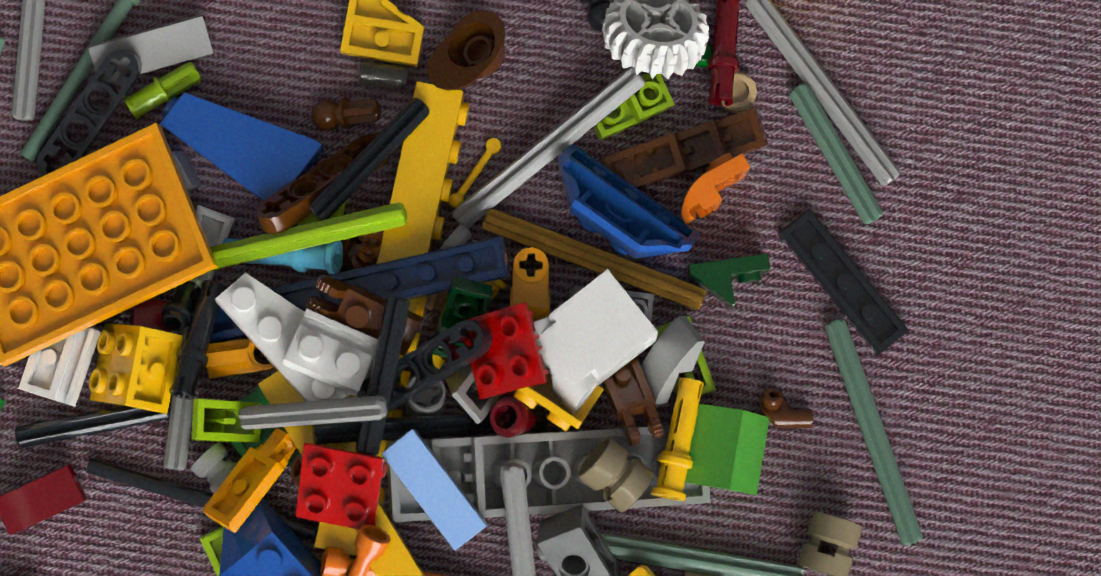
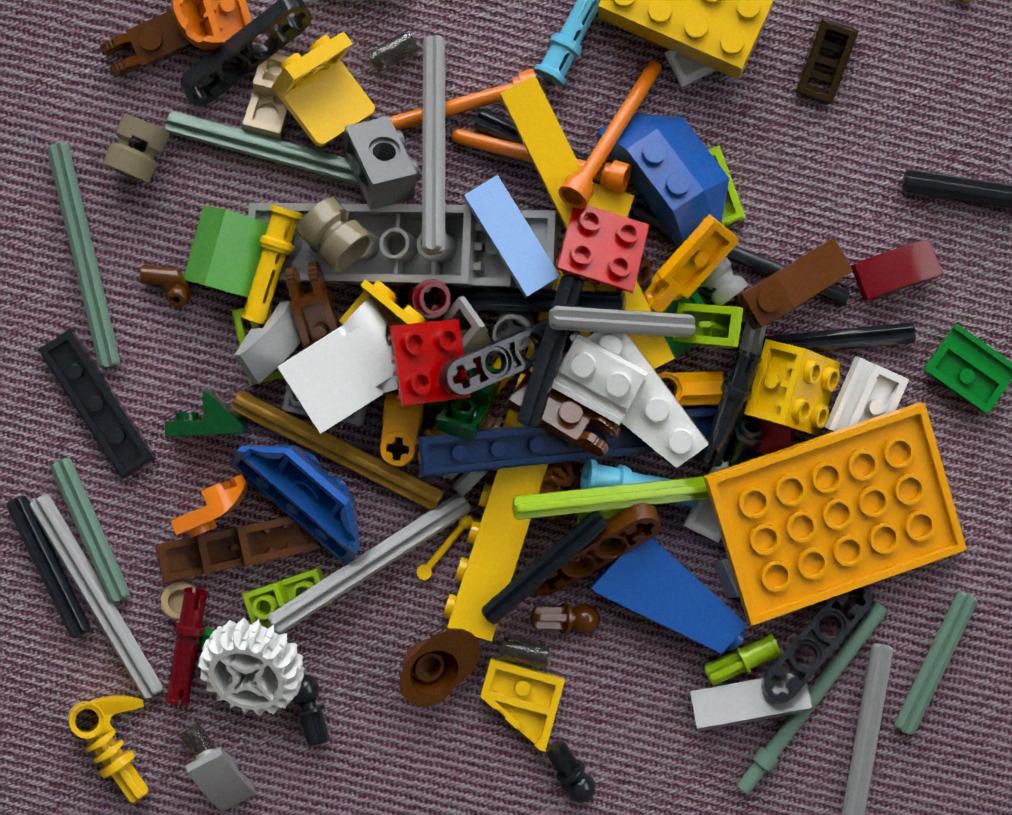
camera: 170 degrees left, 5 degrees up
(143, 472) = (793, 284): none -> reddish brown slope
(873, 112) = (48, 567): none -> black axle

